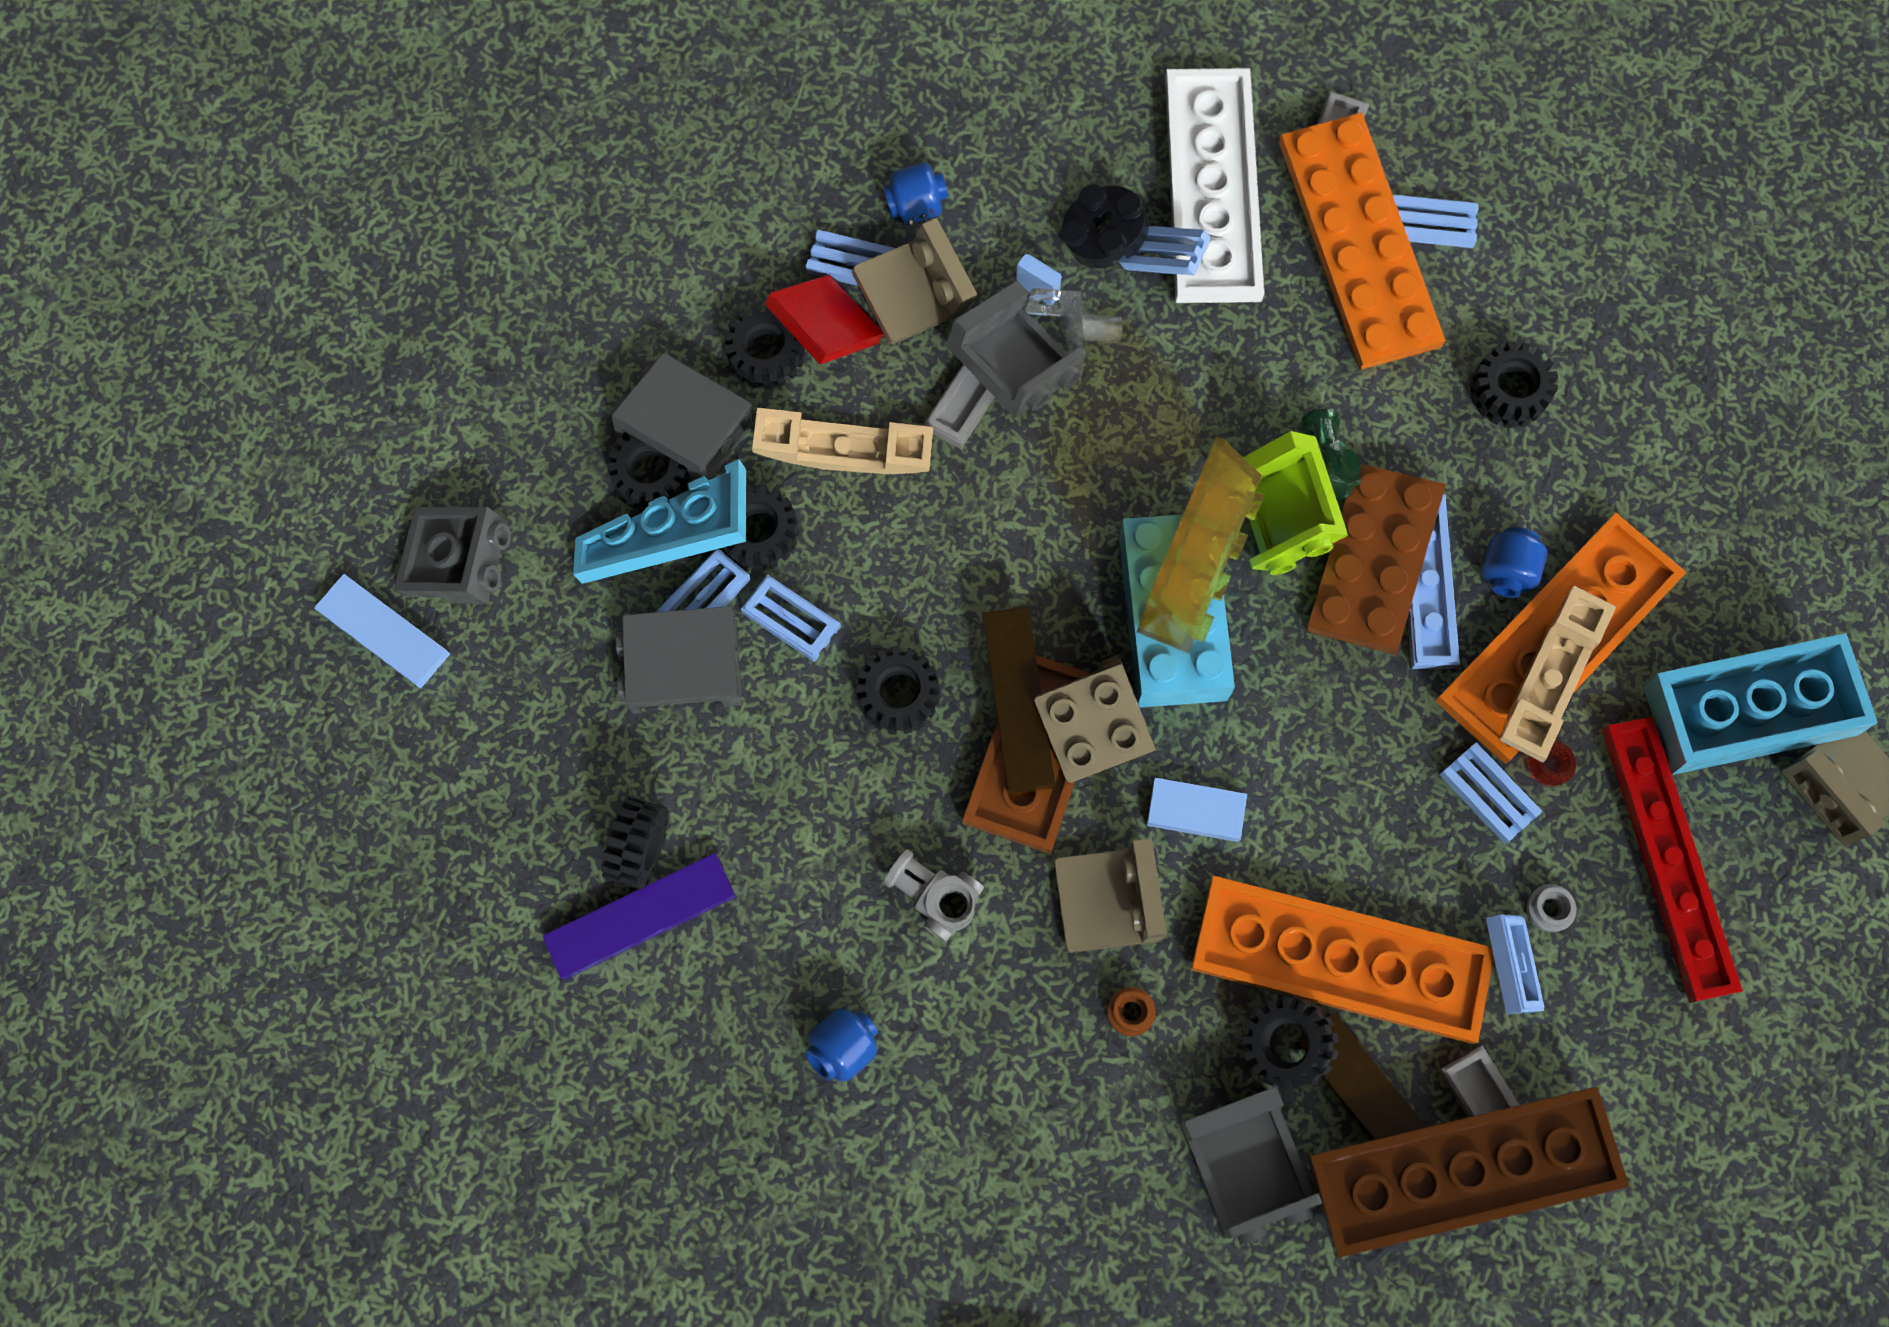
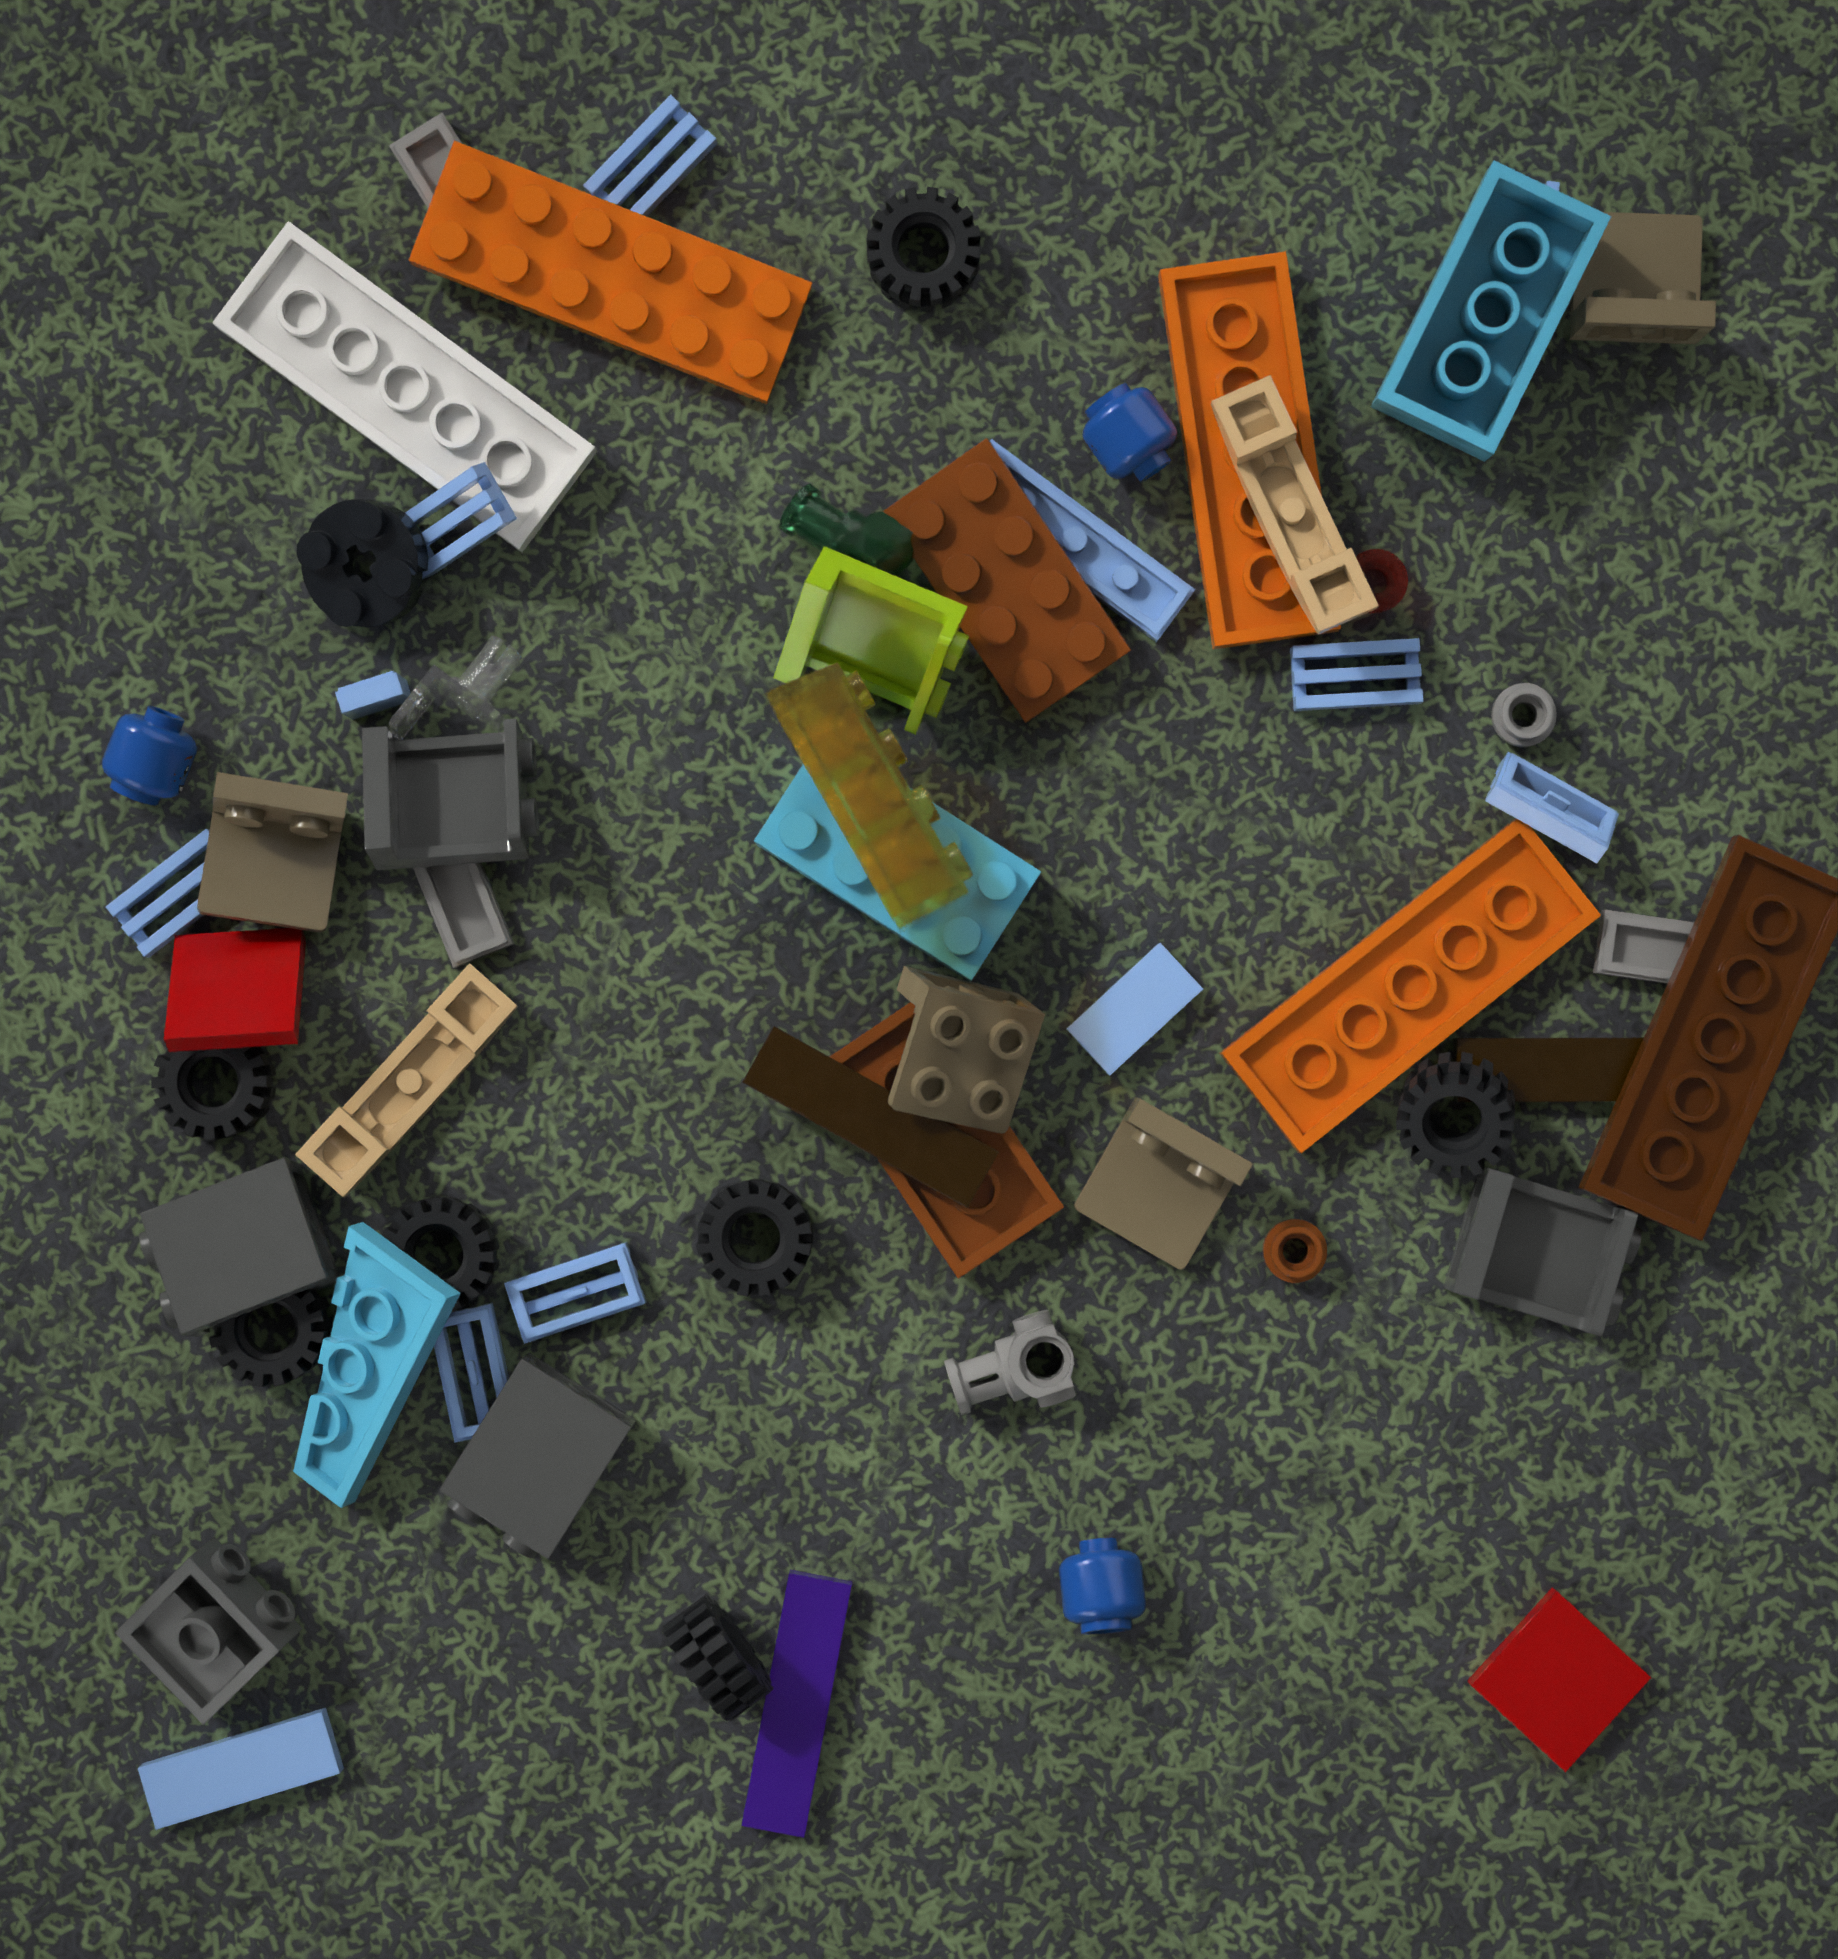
camera: 55 degrees left, 15 degrees up
(1671, 860) = (1570, 543): red plate -> none

